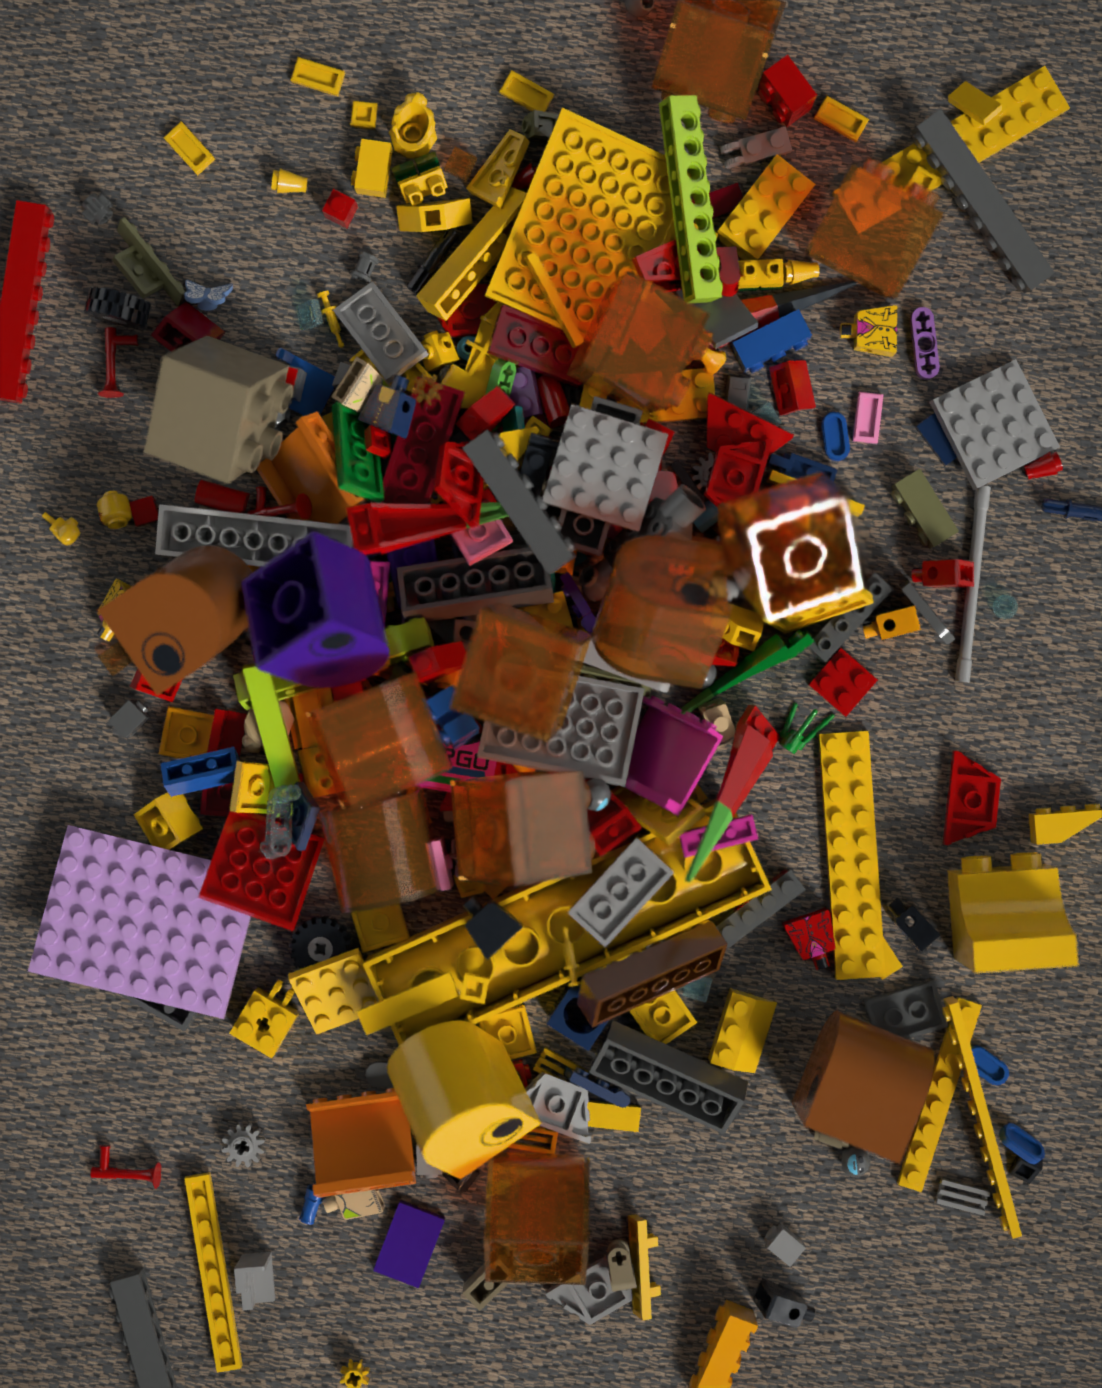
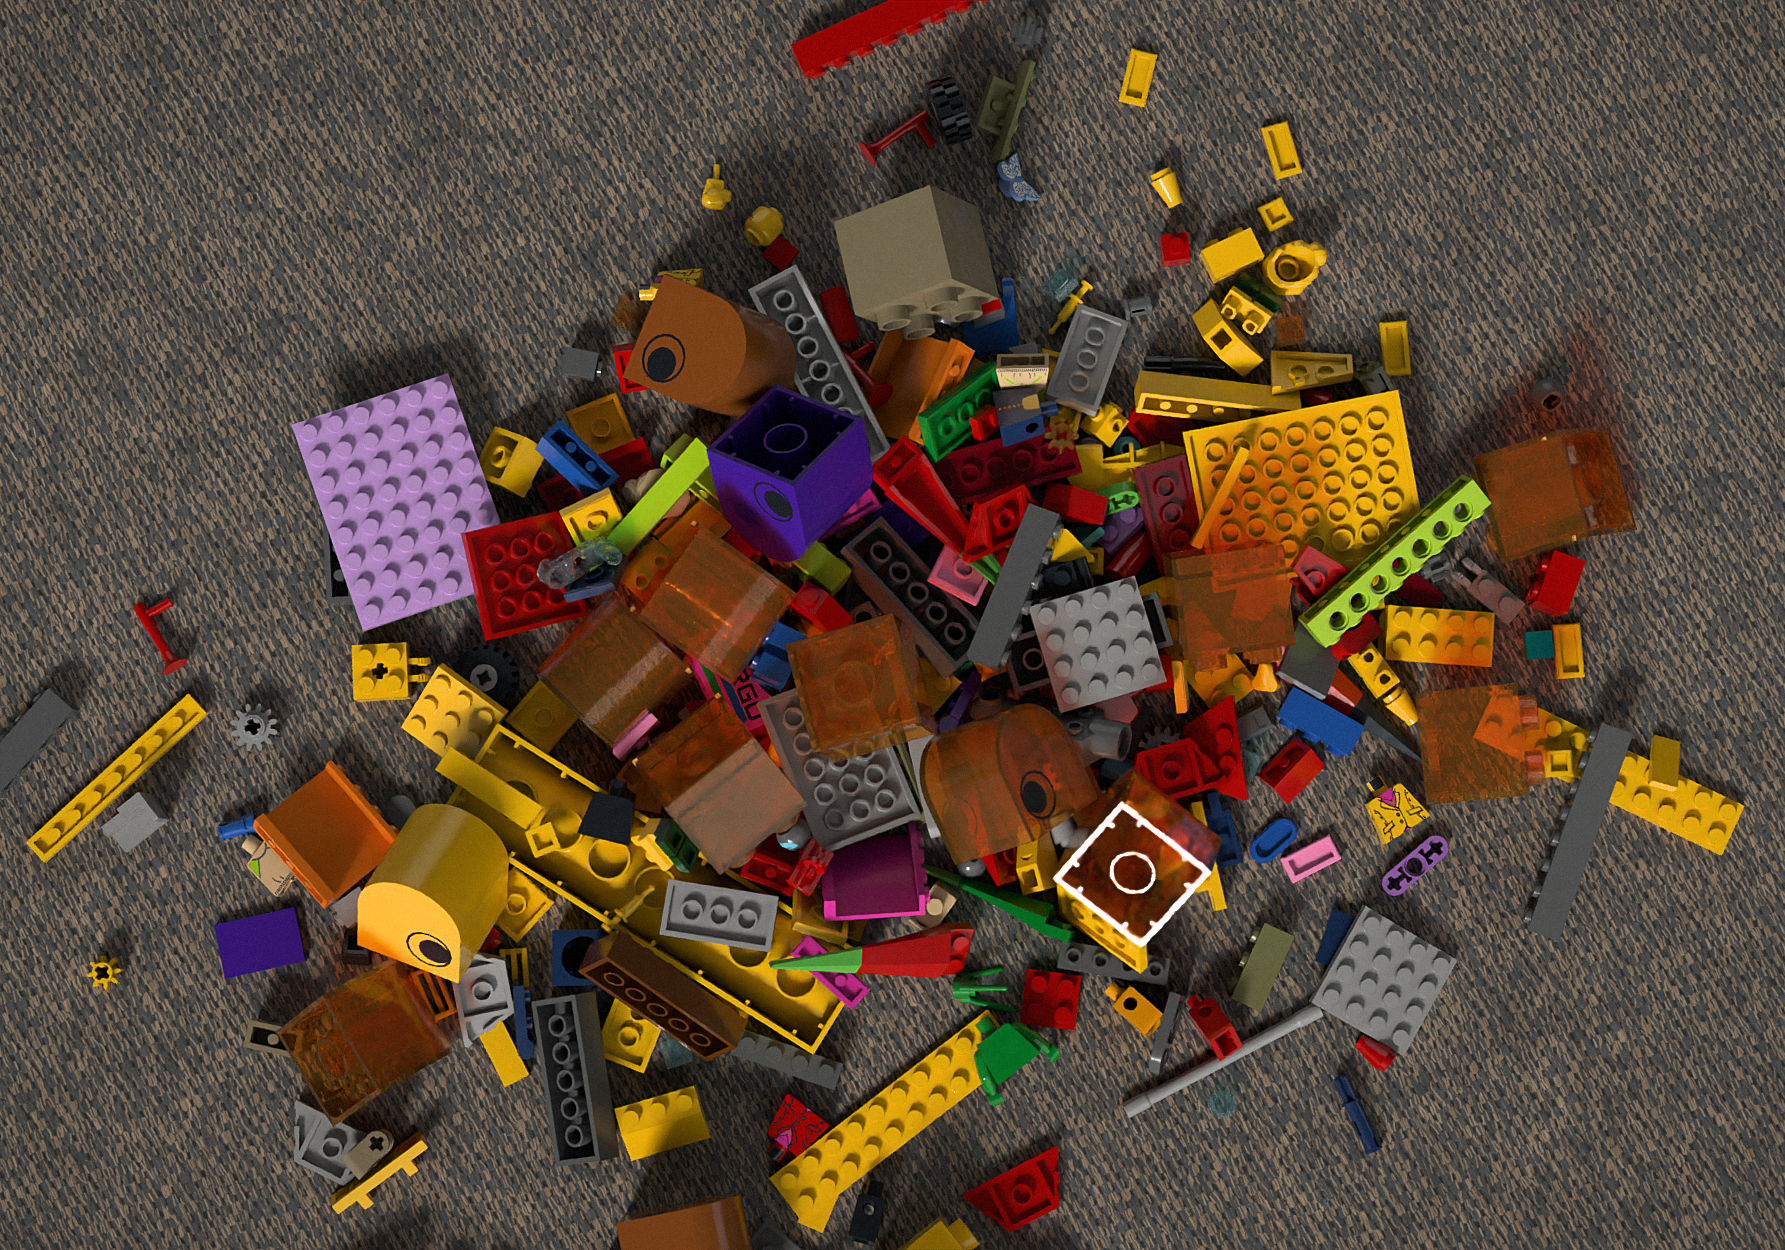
camera: 65 degrees right, 5 degrees down
(183, 327) = (972, 182): dark red slope -> none
(541, 899) = (666, 844): none -> dark green hips
(630, 799) = (809, 867): none -> red hips
(678, 428) = (1180, 684): none -> tile
(715, 174) = (1435, 567): none -> dark grey gear
(822, 137) = (1538, 645): none -> teal tile
(862, 742) = (1005, 1052): none -> green torso

